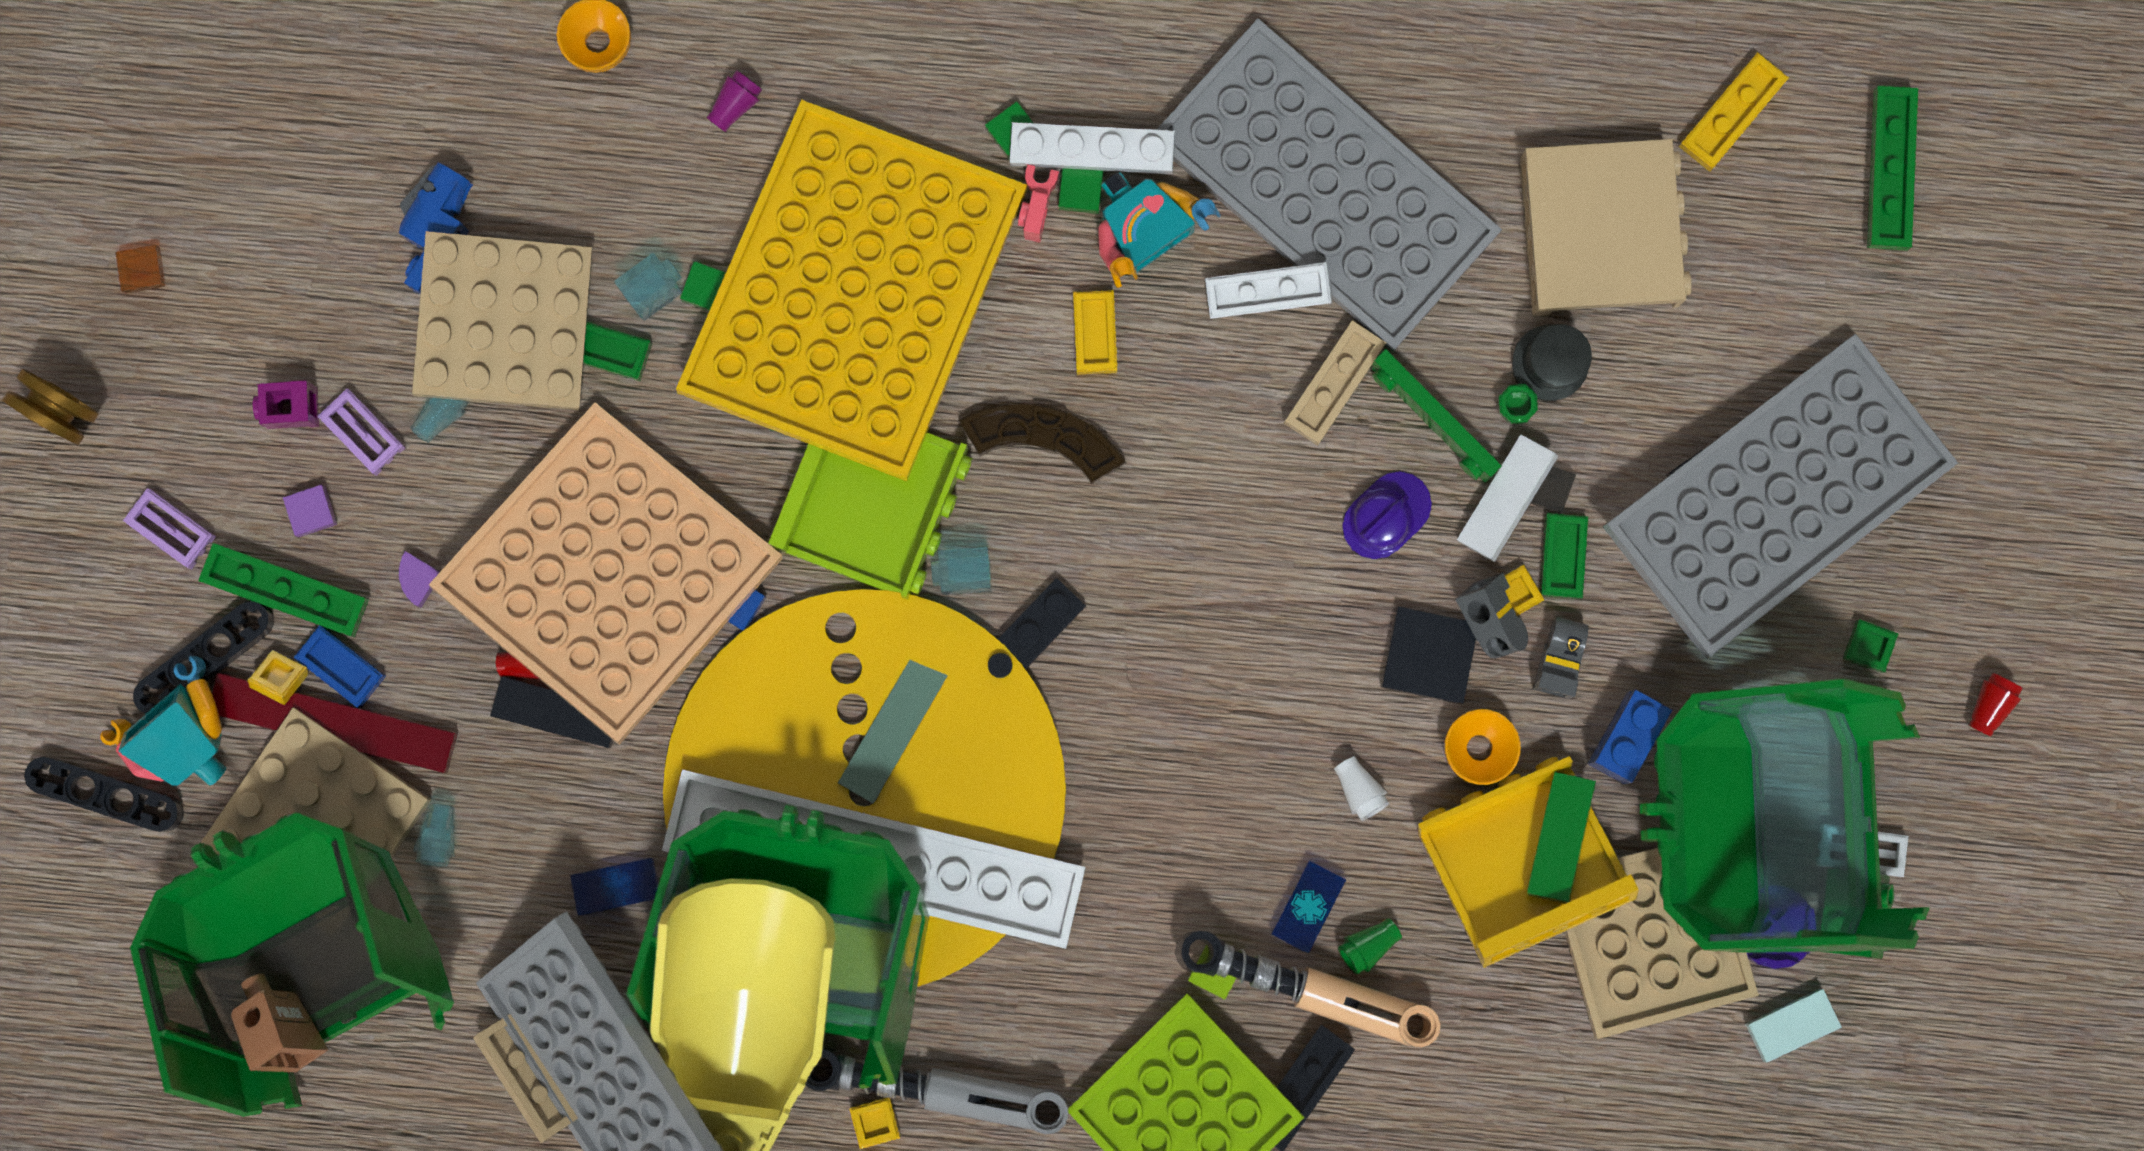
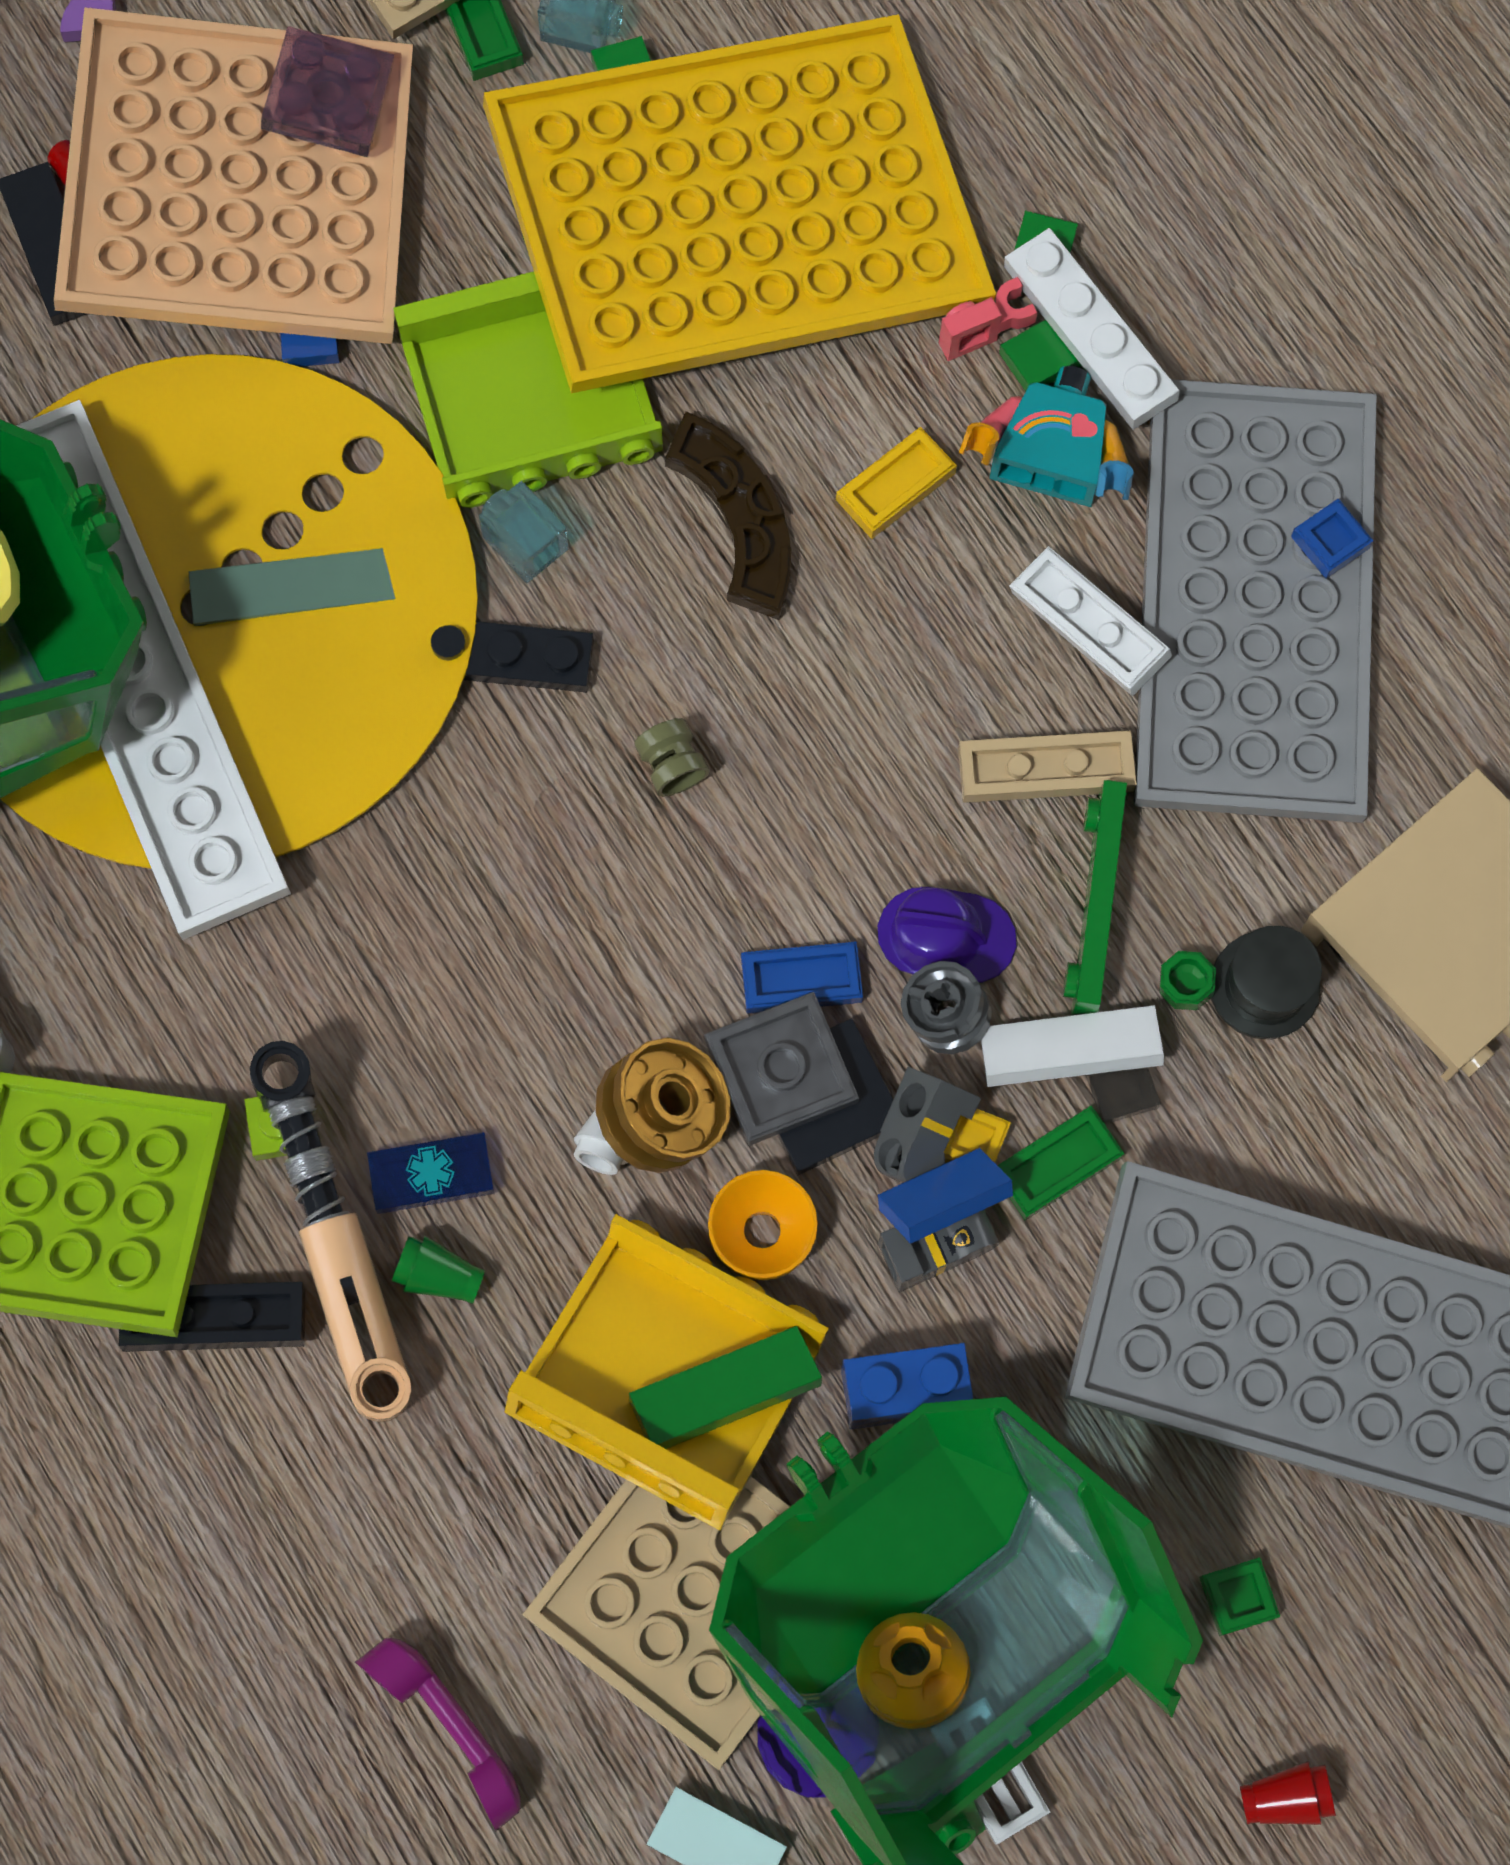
camera: 45 degrees right, 10 degrees down
(594, 478) = (327, 91): none -> clear purple plate
(1159, 588) = (671, 757): none -> olive wheel
(1327, 116) = (1332, 538): none -> blue tile
(1351, 615) = (789, 973): none -> blue tile
(1362, 768) = (639, 1125): none -> pearl gold wheel
(1400, 668) = (781, 1068): none -> flat silver tile
(1450, 556) = (956, 1027): none -> dark grey wheel
(1545, 635) = (945, 1195): none -> blue tile
(1580, 1124) = (405, 1672): none -> magenta piece
(1792, 875) = (918, 1698): none -> light orange piece

